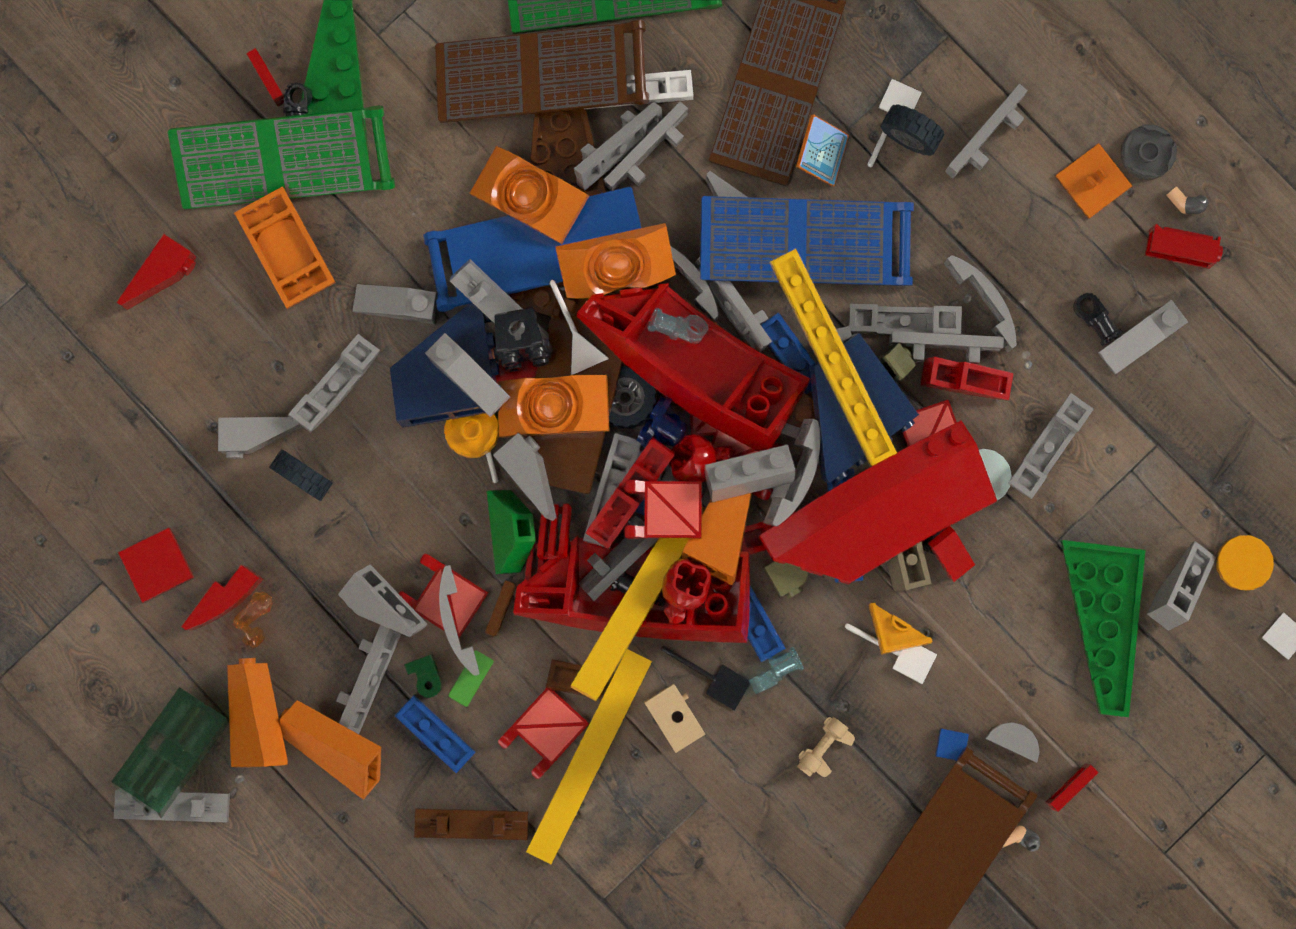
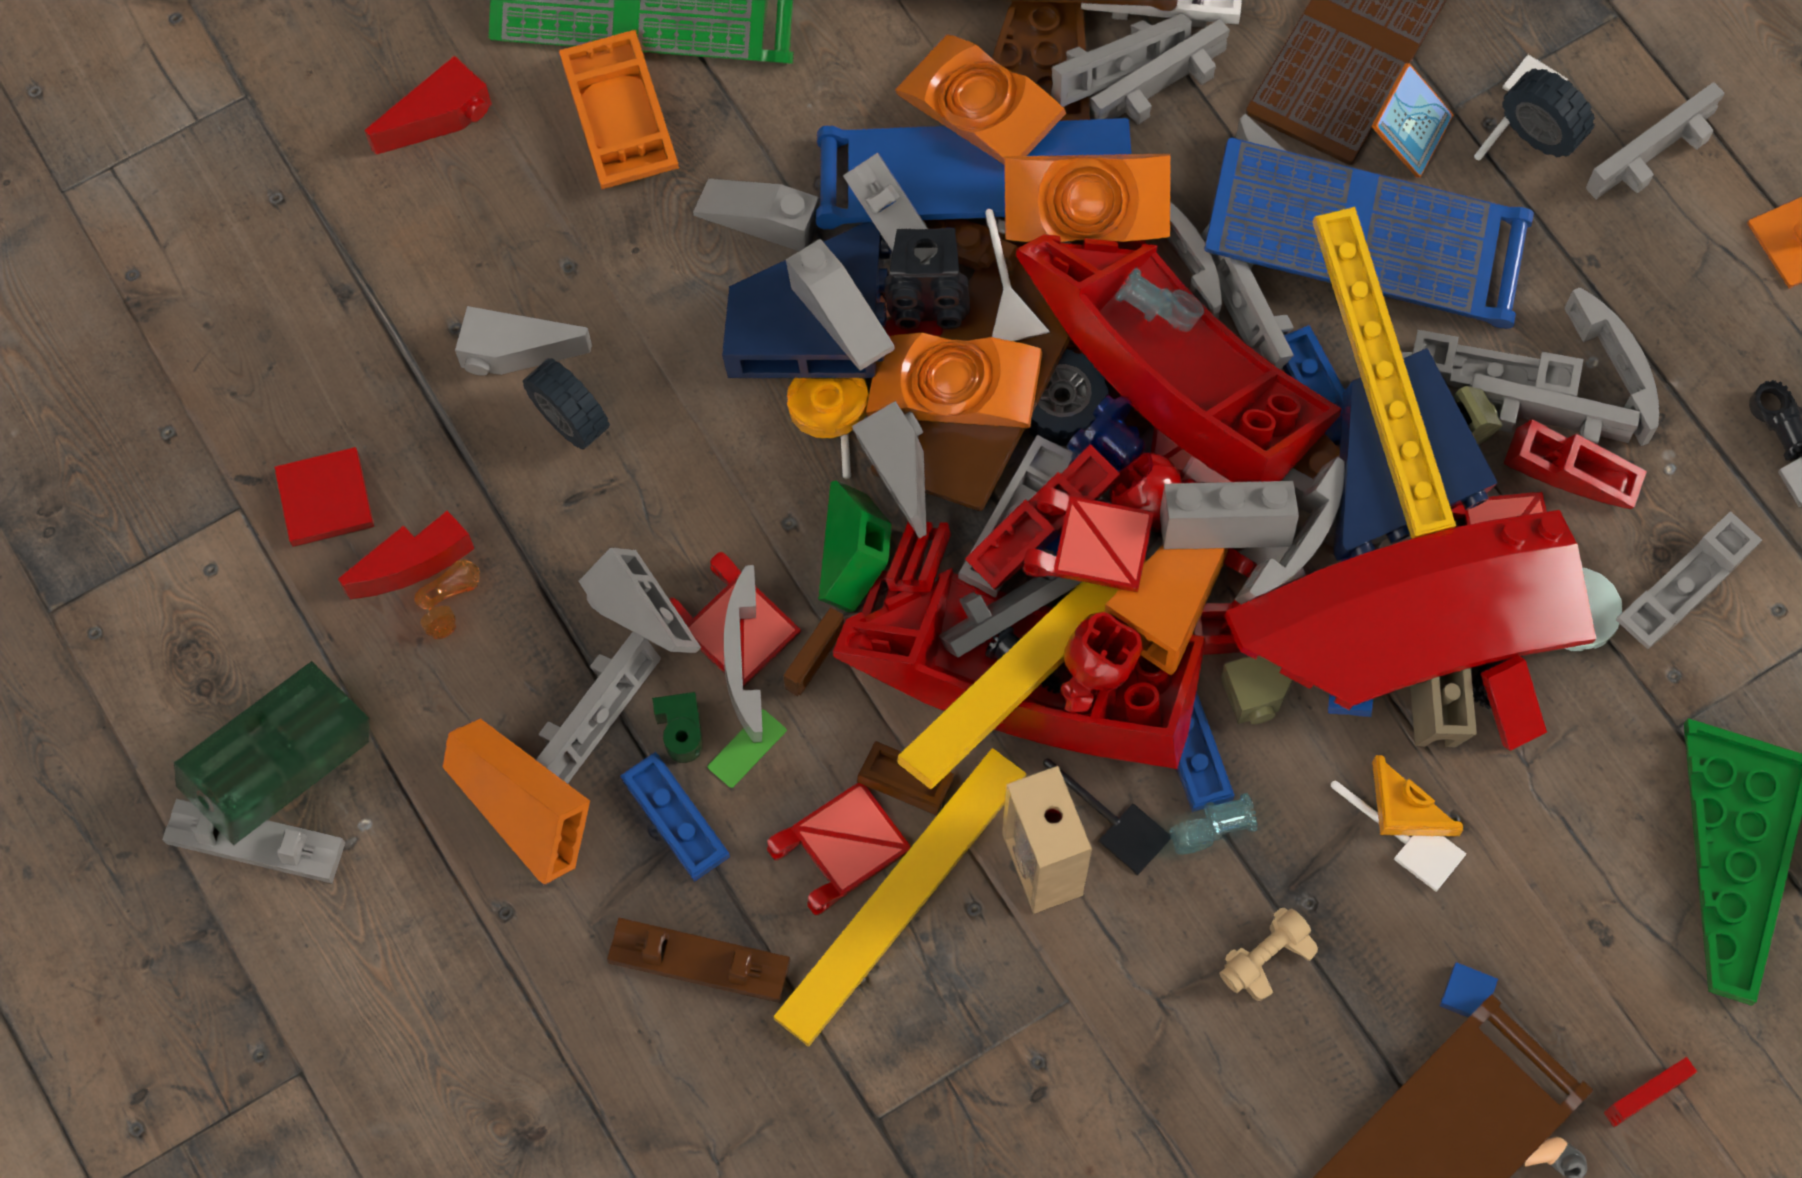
camera: 15 degrees right, 15 degrees down
(253, 717) = (409, 730): orange slope -> none
(335, 384) = (648, 300): light grey slope -> none
(1016, 739) = (1570, 1003): light grey tile -> none

